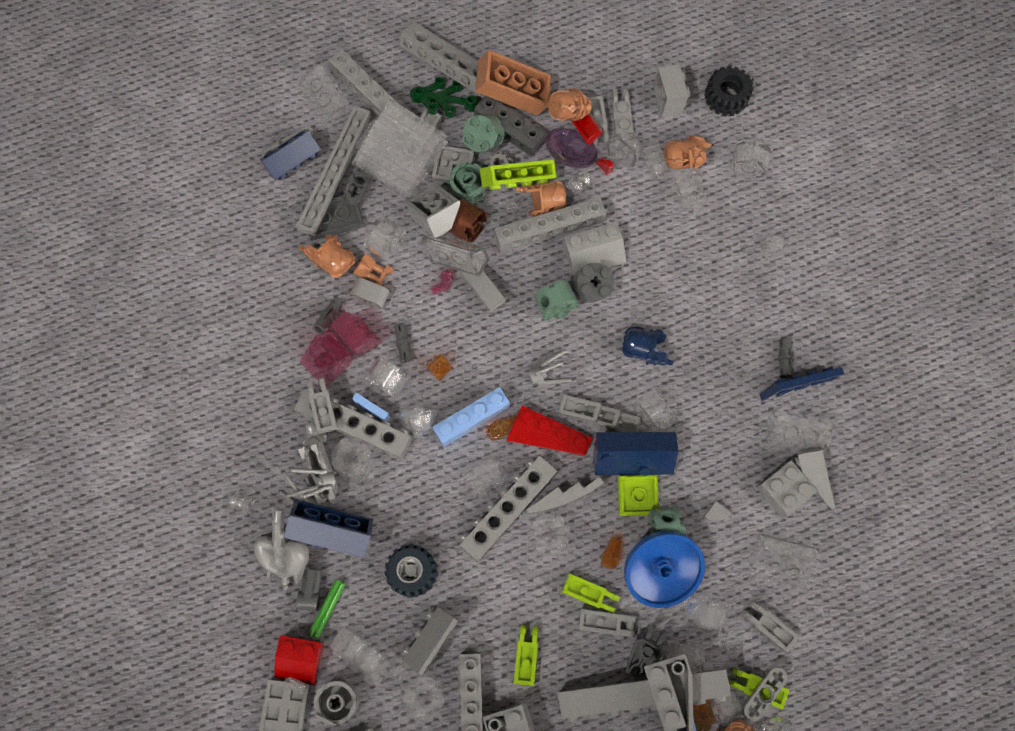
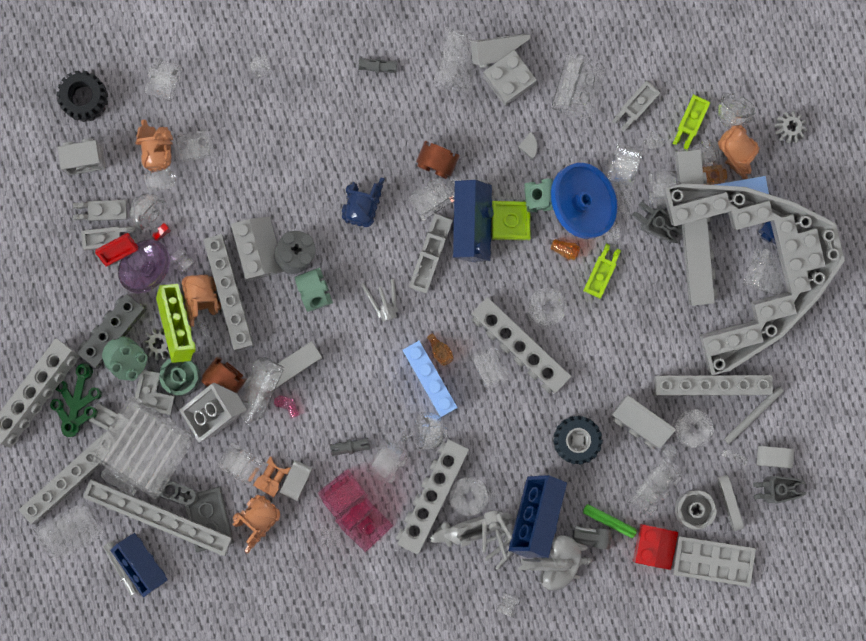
camera: 85 degrees left, 10 degrees up
(295, 685) = (680, 546): clear tile -> none
(321, 323) = (320, 523): dark grey pin -> none
(322, 408) = (419, 525): light grey hinge -> none
(371, 408) = (417, 478): light blue tile -> none
(439, 367) = (377, 410): clear orange tile -> none
(512, 83) = (70, 324): nougat brick -> none
(526, 658) = (659, 334): lime hinge -> none
(541, 431) = (447, 306): red wing -> none
(558, 499) = (512, 298): light grey slope -> none
(568, 104) = (96, 273): nougat helmet -> none
(606, 623) = (629, 257): light grey plate -> none
(696, 417) = (438, 159): none -> copper brick
(768, 677) = (696, 109): light grey beam -> none
(798, 382) = (405, 55): dark blue wing -> none

